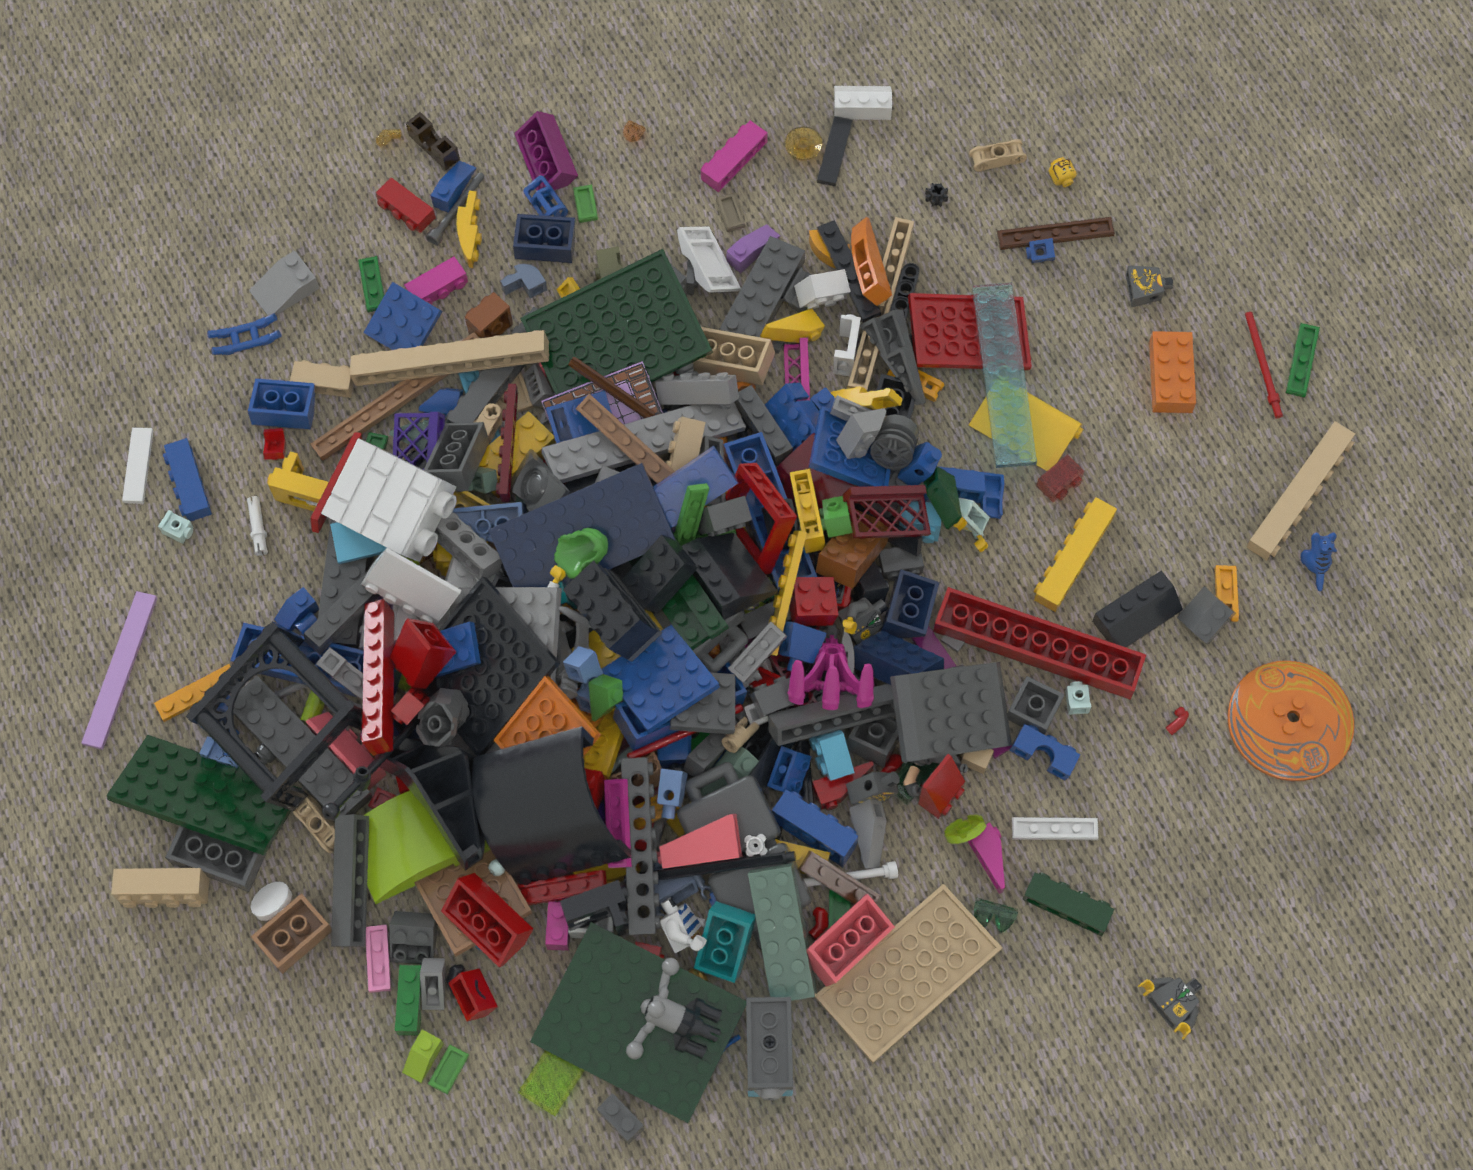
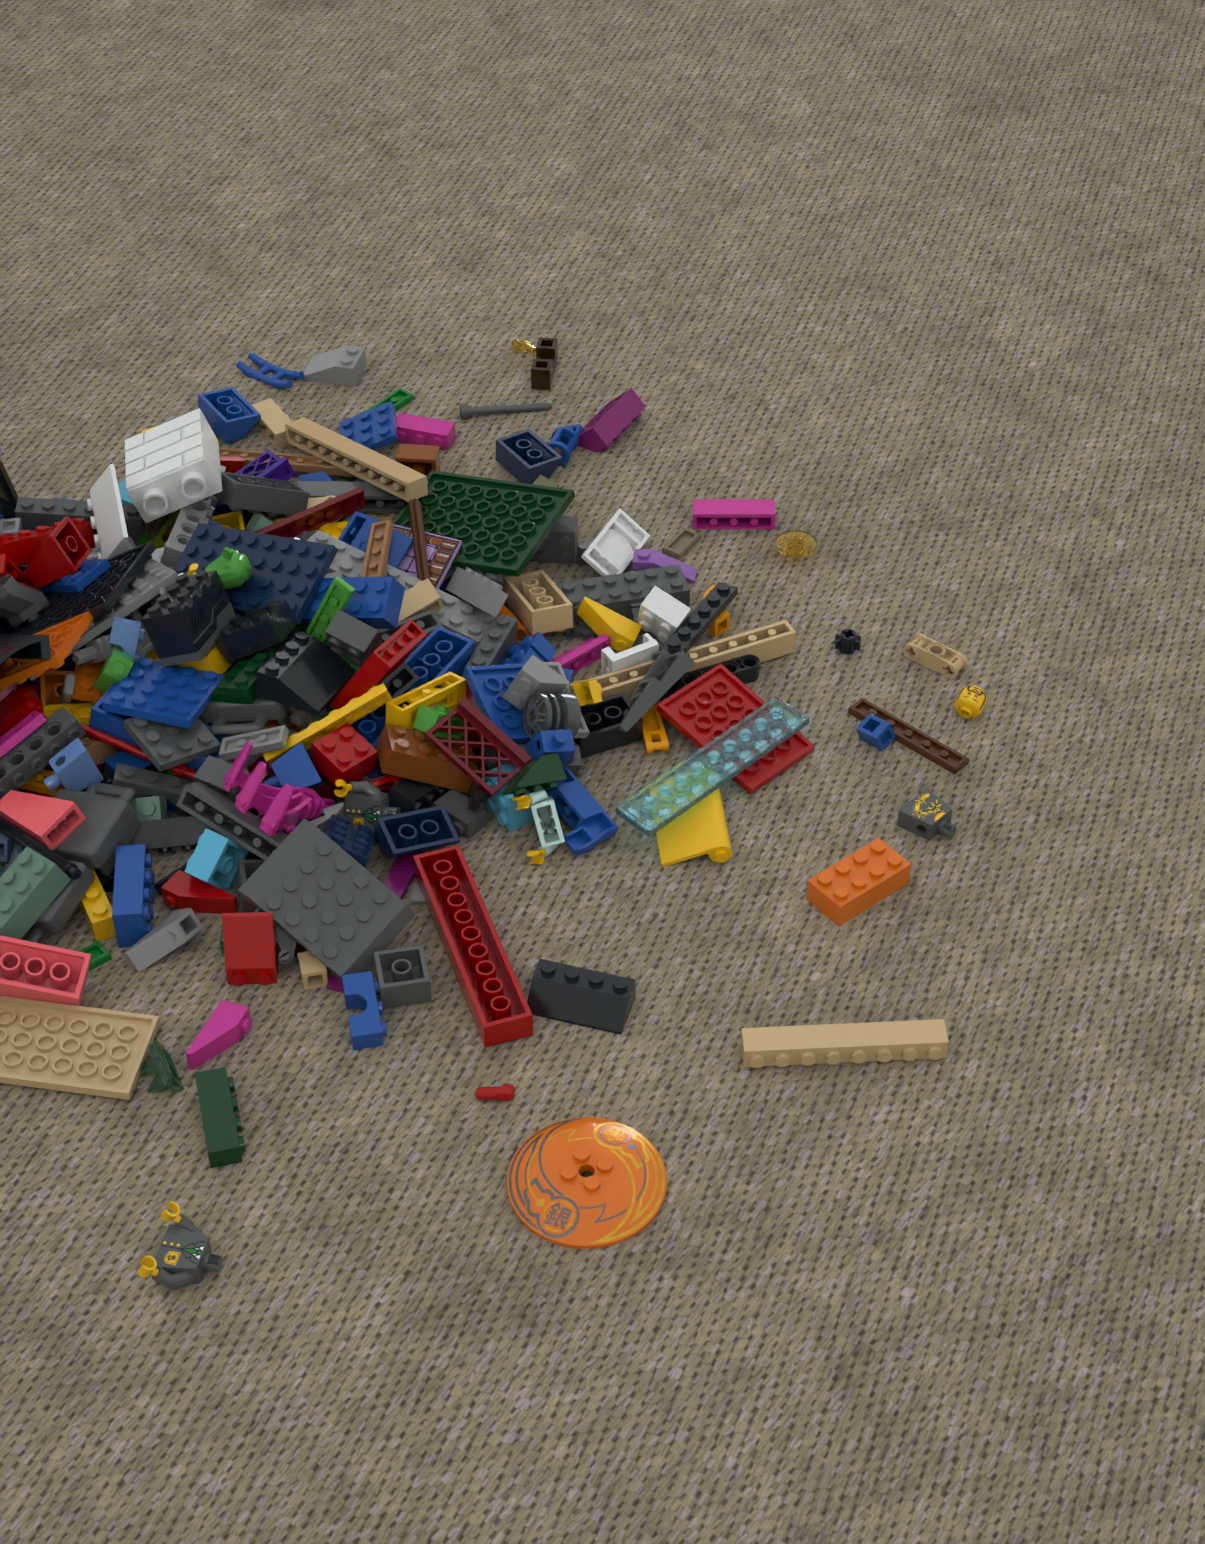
camera: 50 degrees right, 25 degrees down
(137, 465) = (104, 384): white tile -> none
(180, 533) = (69, 424): light aqua brick -> none
(187, 480) = (115, 409): blue brick -> none
(258, 533) = (97, 469): white pin -> none
(405, 205) = (472, 382): red brick -> none
(452, 186) = (515, 392): blue slope -> none
(468, 229) = (490, 419): yellow slope -> none
(526, 277) = (477, 467): sand blue brick -> none
(585, 203) = (591, 467): bright green tile -> none
(633, 131) = (688, 456): clear orange tile -> none
(734, 741) = (167, 785): tan hinge -> none
(750, 841) = (65, 845): white plate -> none
(789, 770) = (172, 848): blue brick -> none
(834, 151) = (814, 567): black tile -> none
(835, 879) = (93, 938): tile -> none
(863, 102) = (878, 555): white slope -> none
(869, 263) = (717, 624): orange slope -> none
(882, 786) = (206, 904): dark grey torso -> none
(888, 871) = (140, 974): white piece -> none
(964, 830) = (225, 994): lime tile -> none
(1054, 828) = (293, 1068): white tile -> none
(1060, 479) = (659, 869): clear red brick -> none
(1074, 704) = (444, 1006): light aqua brick -> none
(1075, 554) = (593, 921): yellow brick -> none
(1206, 615) = (626, 1048): dark grey slope -> none
(1226, 587) = (671, 1052): light orange plate -> none
(1273, 397) = (922, 970): red bar -> none
(1302, 360) = (989, 970): green tile -> none
(1319, 558) = (784, 1096): blue animal -> none

